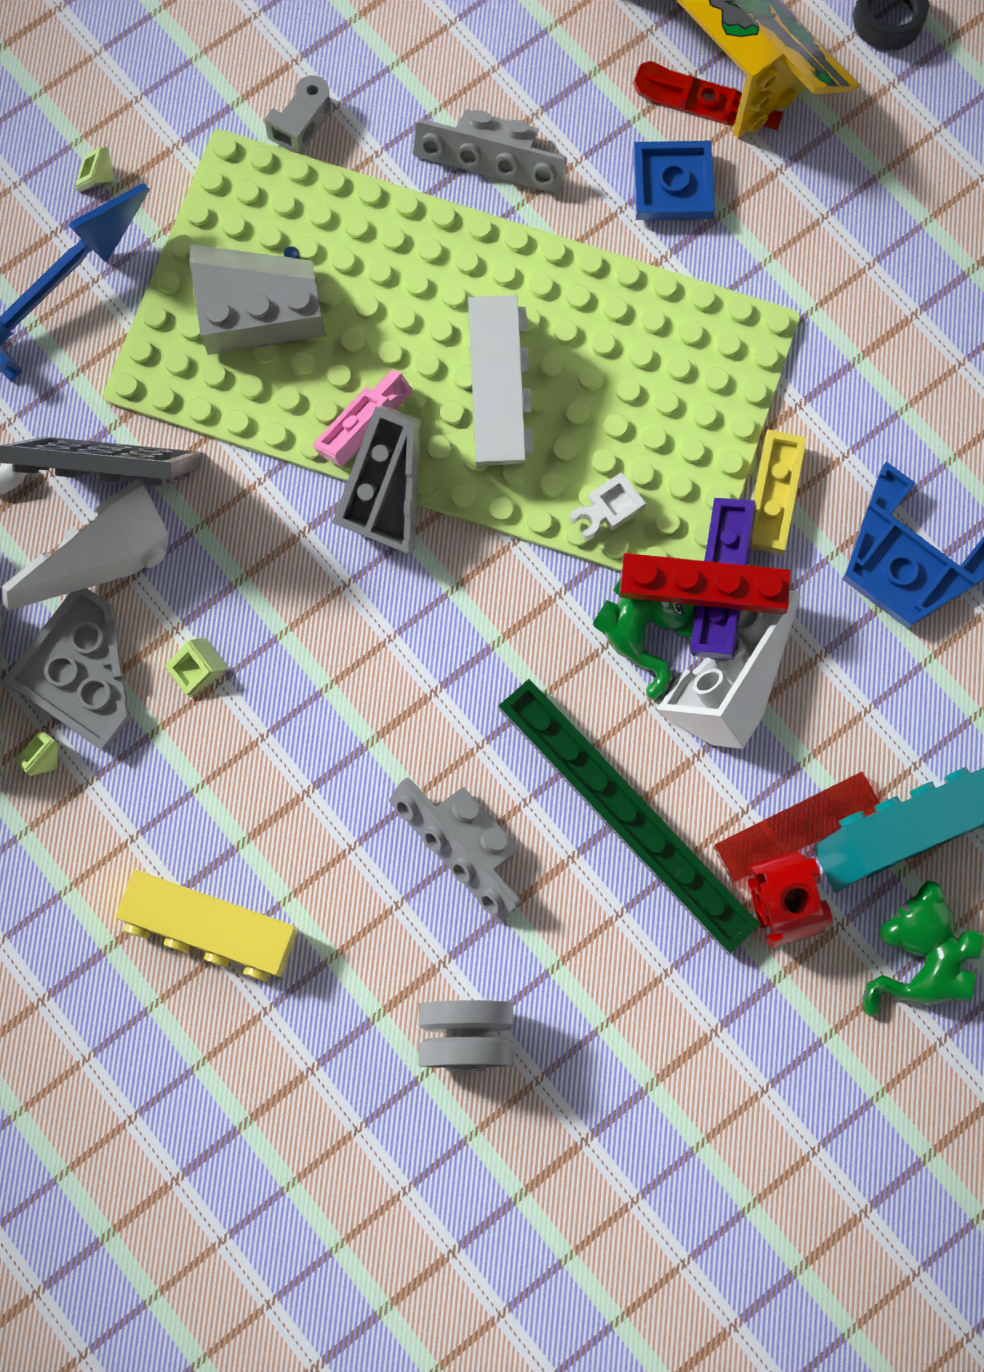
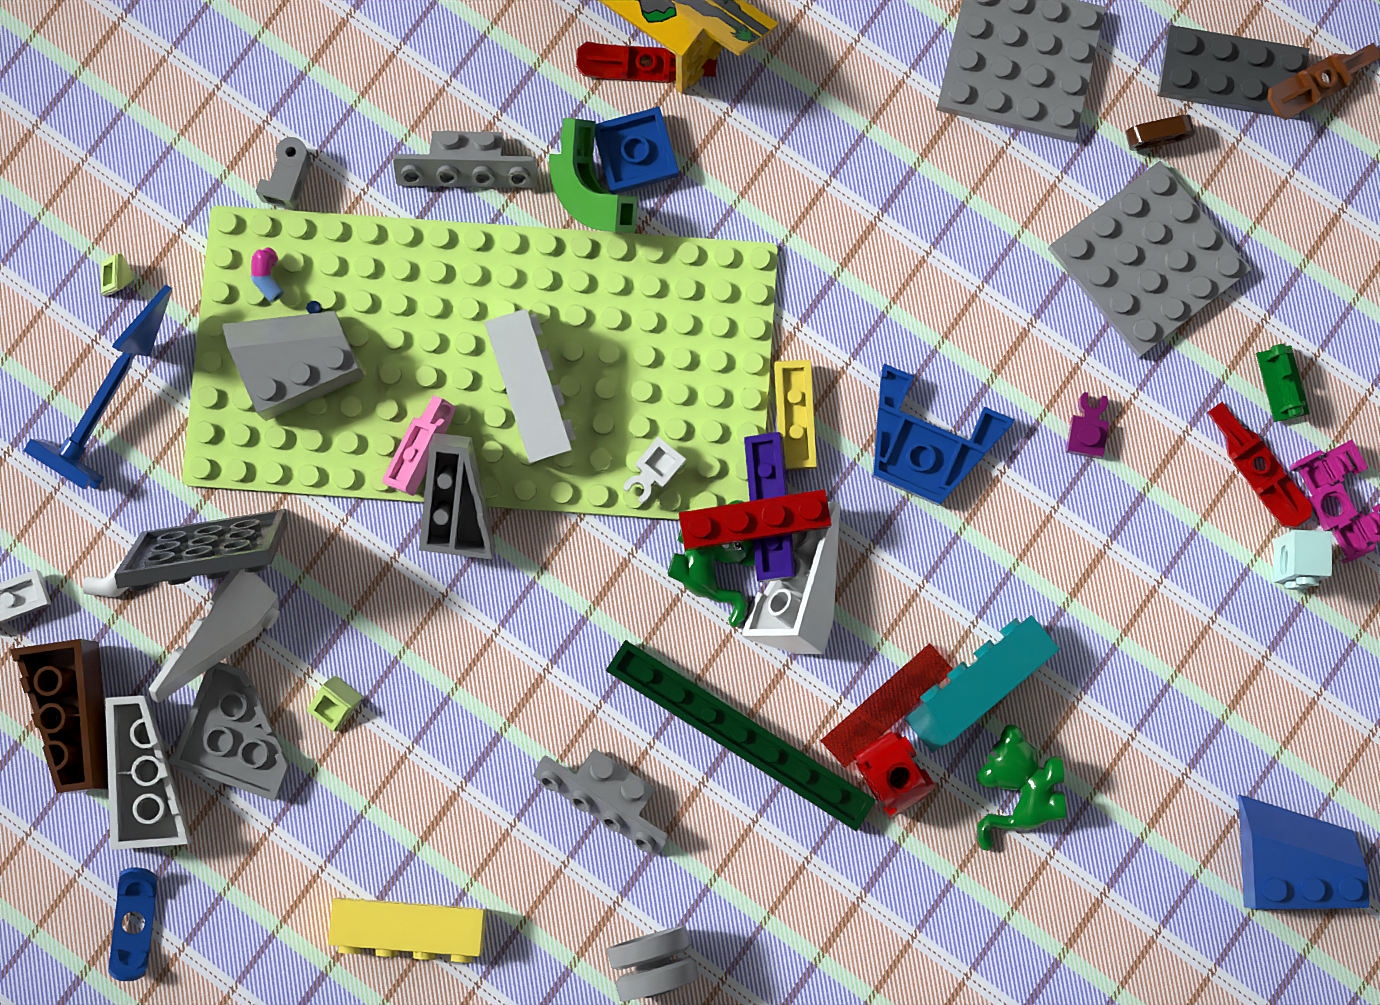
camera: 15 degrees left, 5 degrees up
(38, 755) = (220, 819): yellowish green slope -> none
(249, 194) = (261, 273): none -> arm
(604, 199) = (578, 186): none -> bright green arch

